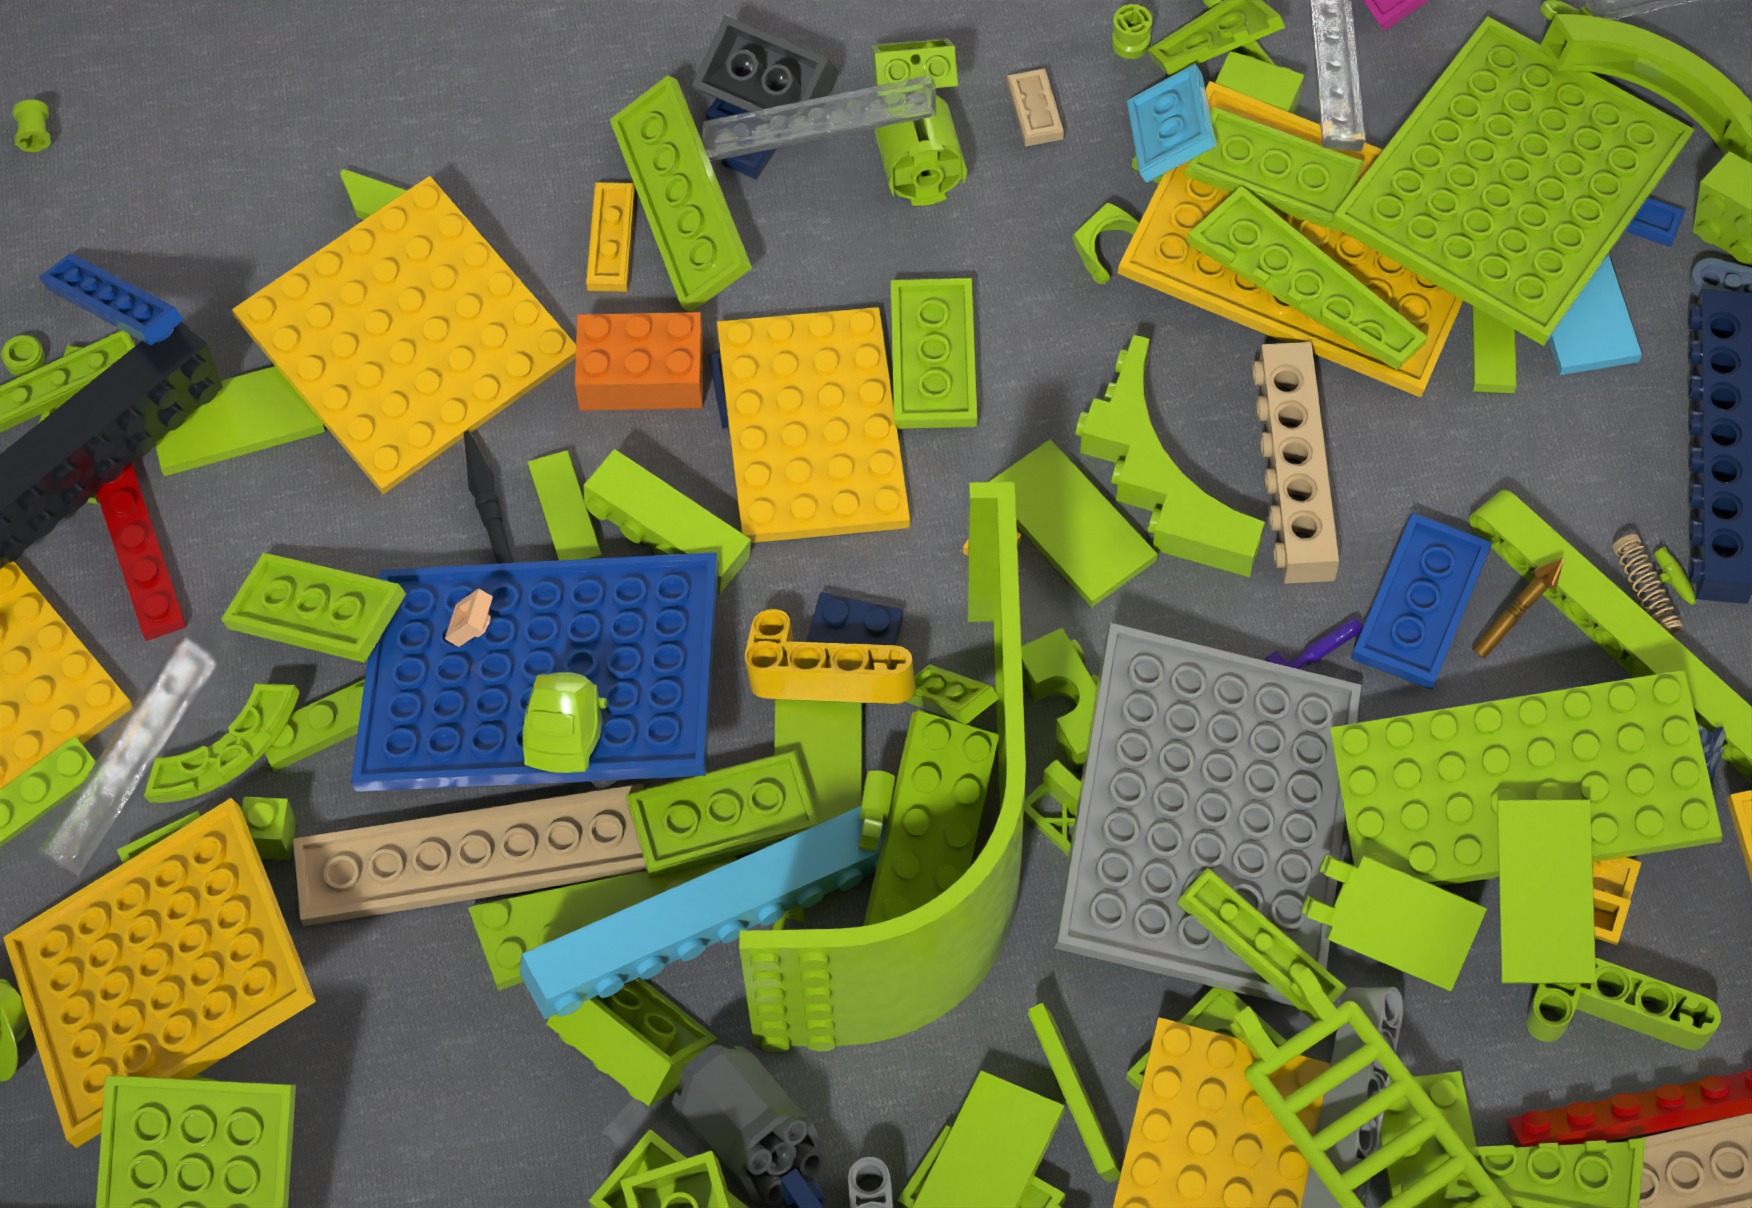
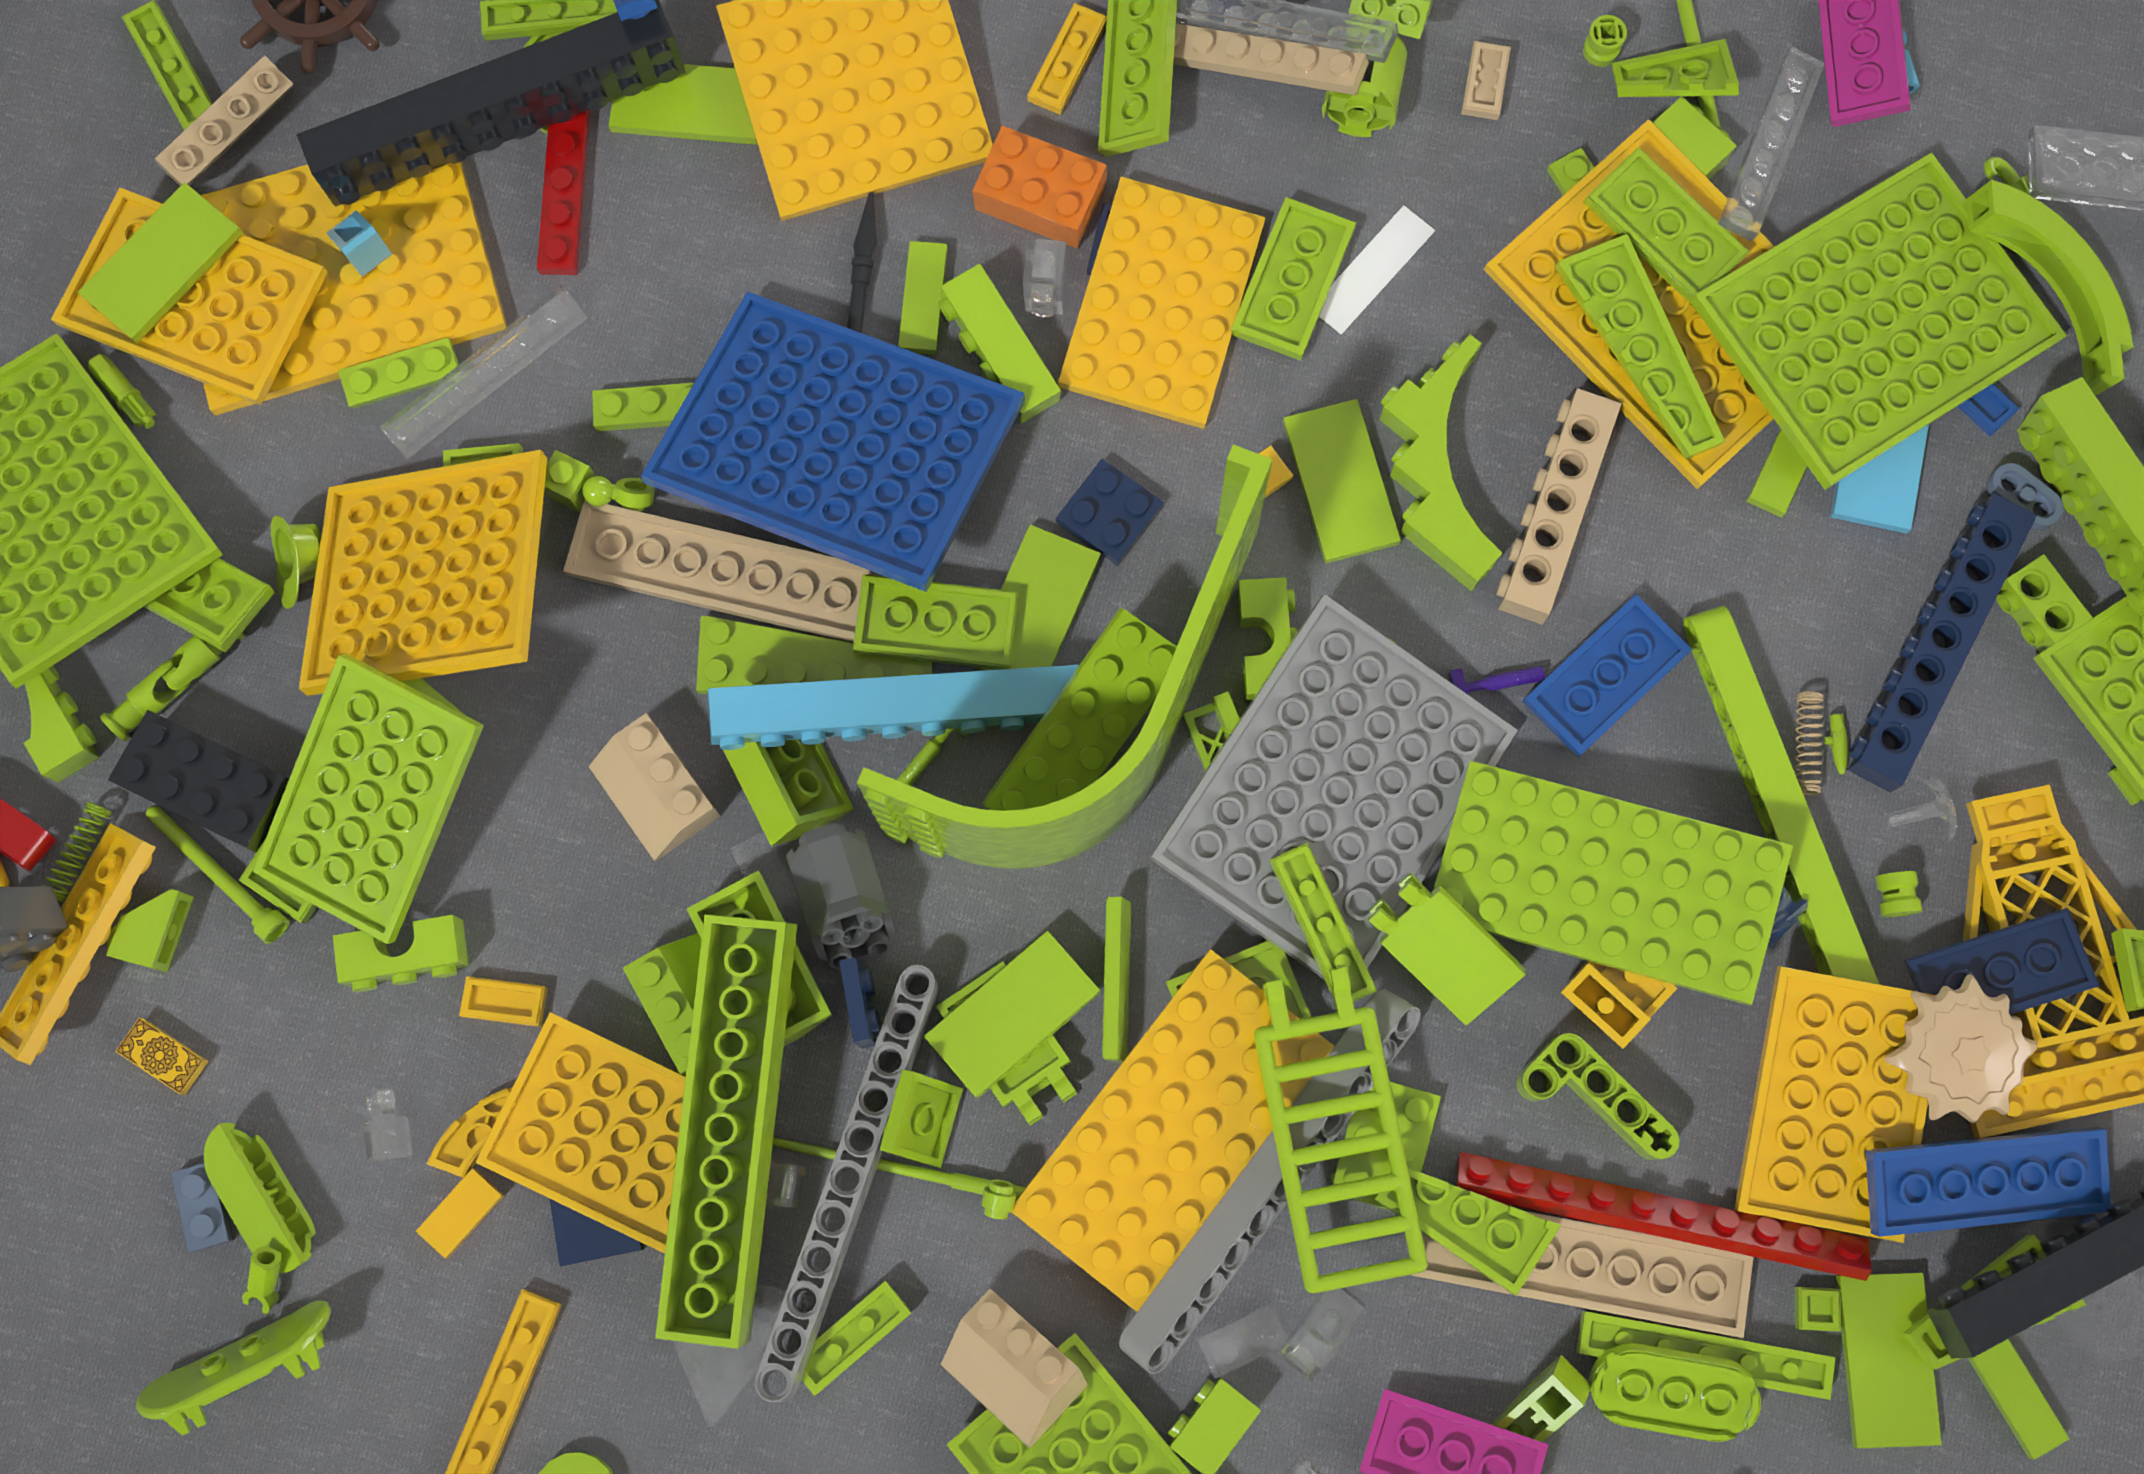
camera: 25 degrees right, 15 degrees up
(213, 766) = (554, 408): lime tile -> none
(314, 607) = (679, 304): lime plate -> none
(341, 814) = (629, 492): none -> lime plate
(469, 618) = (794, 370): light nougat plate -> none
(492, 1101) = (652, 787): none -> tan slope
(562, 722) = (826, 498): lime helmet -> none
(685, 439) = (1045, 277): none -> clear brick
(819, 158) = (1269, 59): none -> tan plate
(823, 670) = (1115, 558): yellow beam -> none
(875, 807) = (1056, 674): lime bar -> none
(951, 694) = (1162, 597): lime tile -> none
(1008, 316) = (1374, 268): none -> white sticker
(1107, 218) = (1470, 225): lime helmet -> none
(1171, 123) = (1595, 146): medium azure tile -> none
(1545, 577) = (1720, 703): pearl gold piece -> none
(1546, 892) = (1579, 985): lime tile -> none

